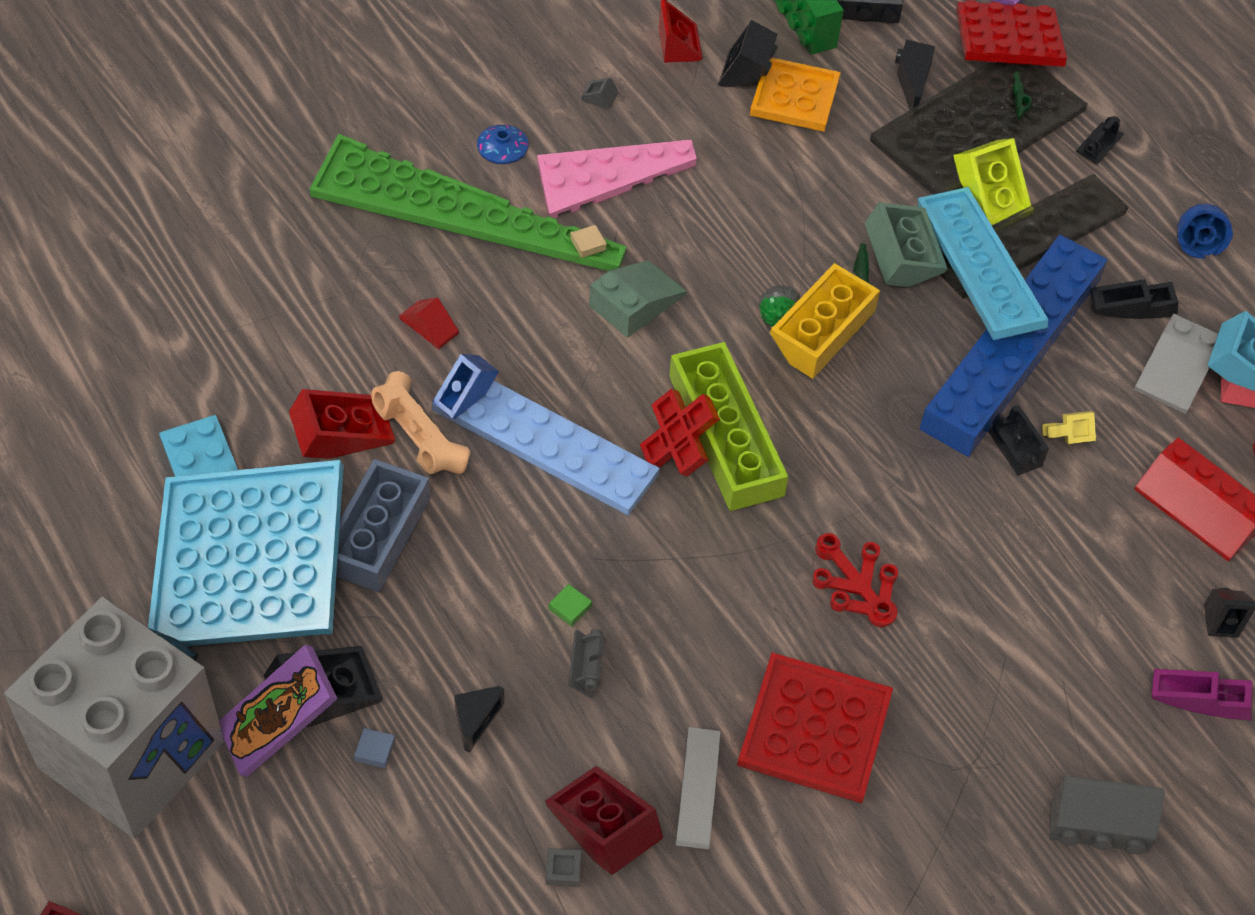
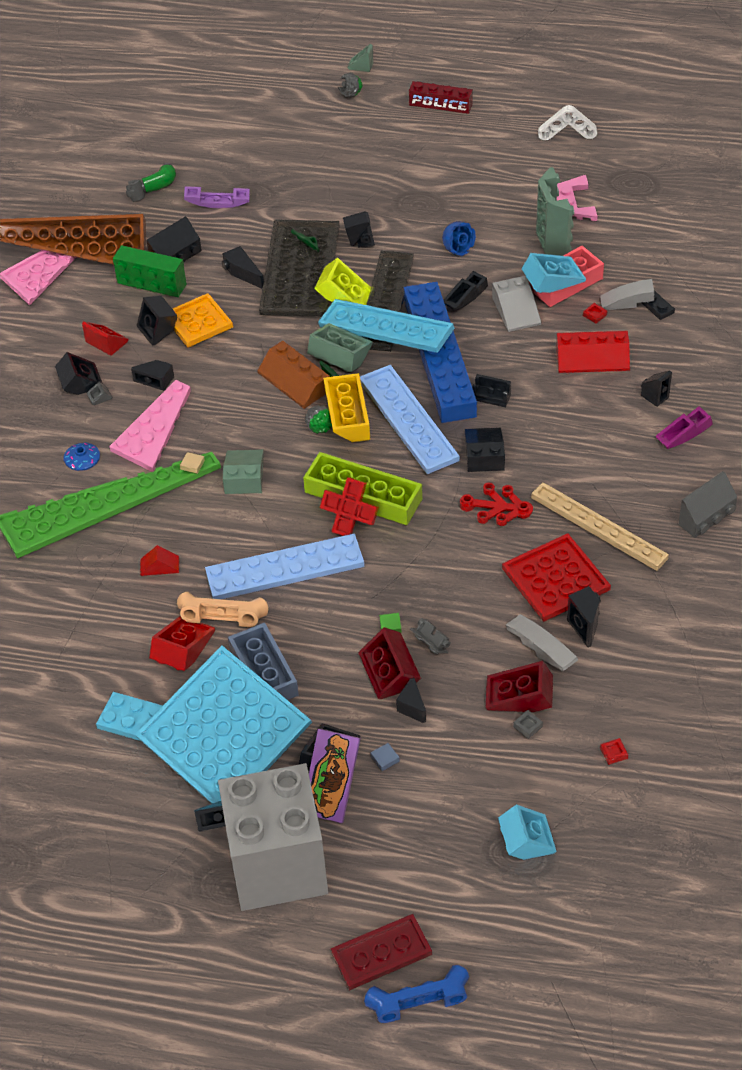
camera: 40 degrees left, 5 degrees down
(465, 384) = (223, 572): blue slope -> none
(508, 647) = (388, 663): none -> dark red slope
(601, 53) = (77, 374): none -> black slope
(676, 115) = (153, 374): none -> black slope
(784, 804) = (584, 613): none -> black slope
(817, 233) = (293, 374): none -> dark orange slope
(882, 394) = (409, 419): none -> light blue plate
(925, 501) = (485, 449): none -> black slope
(945, 719) = (600, 526): none -> tan plate
(1010, 33) = (264, 215): red plate -> none
(1075, 428) = (507, 365): light yellow plate -> none
(1092, 121) = (356, 225): none -> black slope

